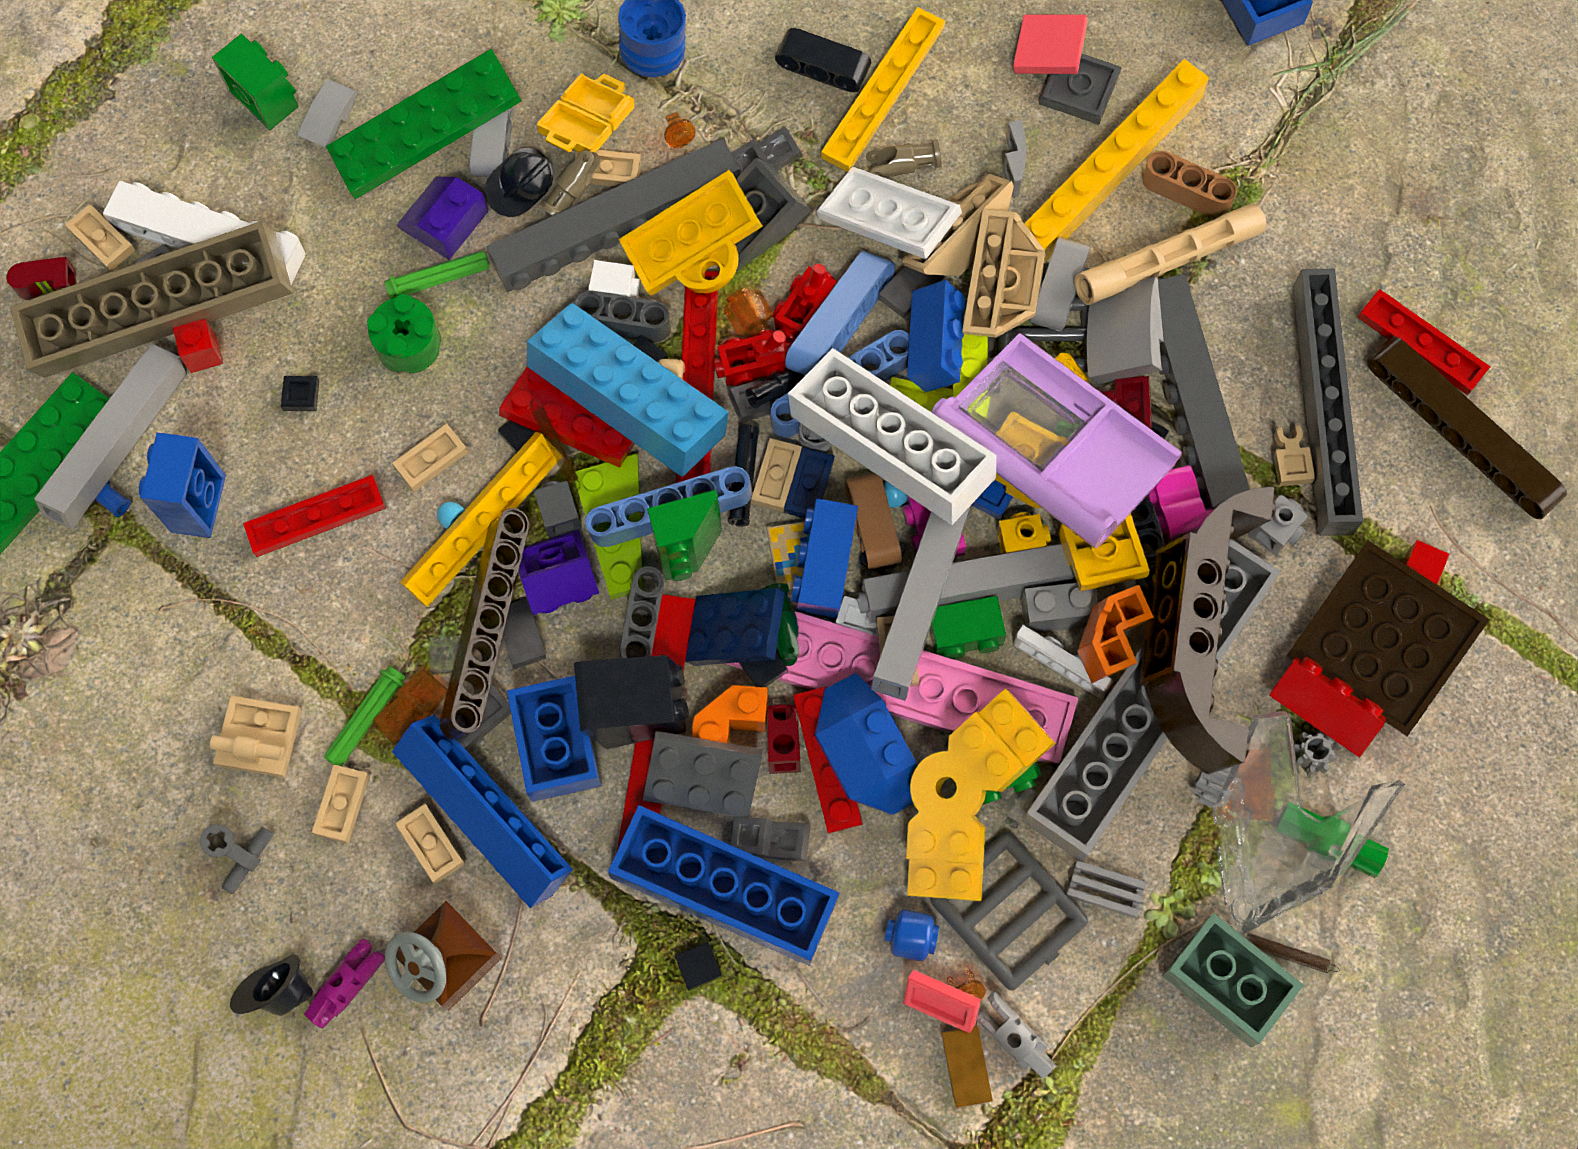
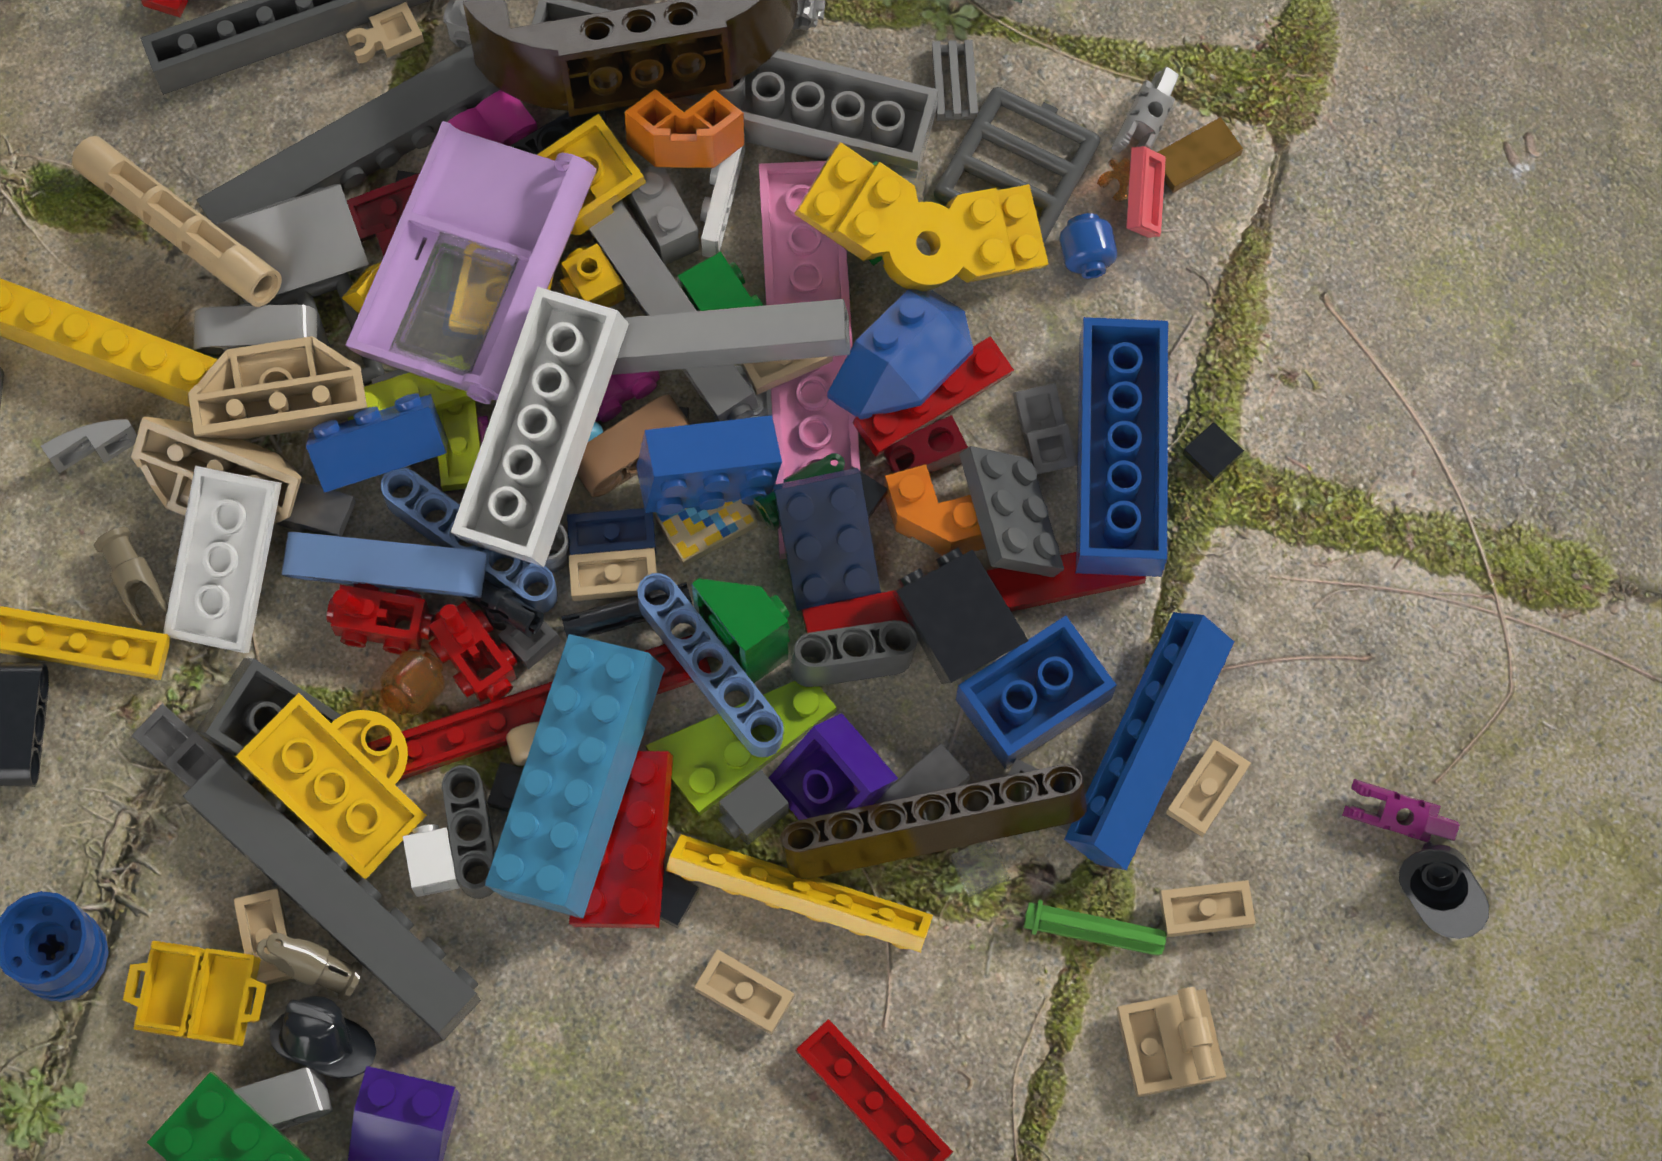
camera: 115 degrees left, 0 degrees up
(246, 859) = (1314, 1018): dark grey piece -> none
(404, 334) = (587, 1065): green brick -> none
(414, 702) = (1060, 882): clear orange slope -> none
(437, 274) = (493, 1096): bright green axle -> none
(442, 956) = (1329, 708): reddish brown piece -> none
(448, 513) = (808, 935): medium azure hinge -> none
(565, 455) = (676, 831): reddish brown piece -> none
(679, 131) = (183, 864): clear orange plate -> none
(1180, 171) = (58, 221): medium nougat beam -> none

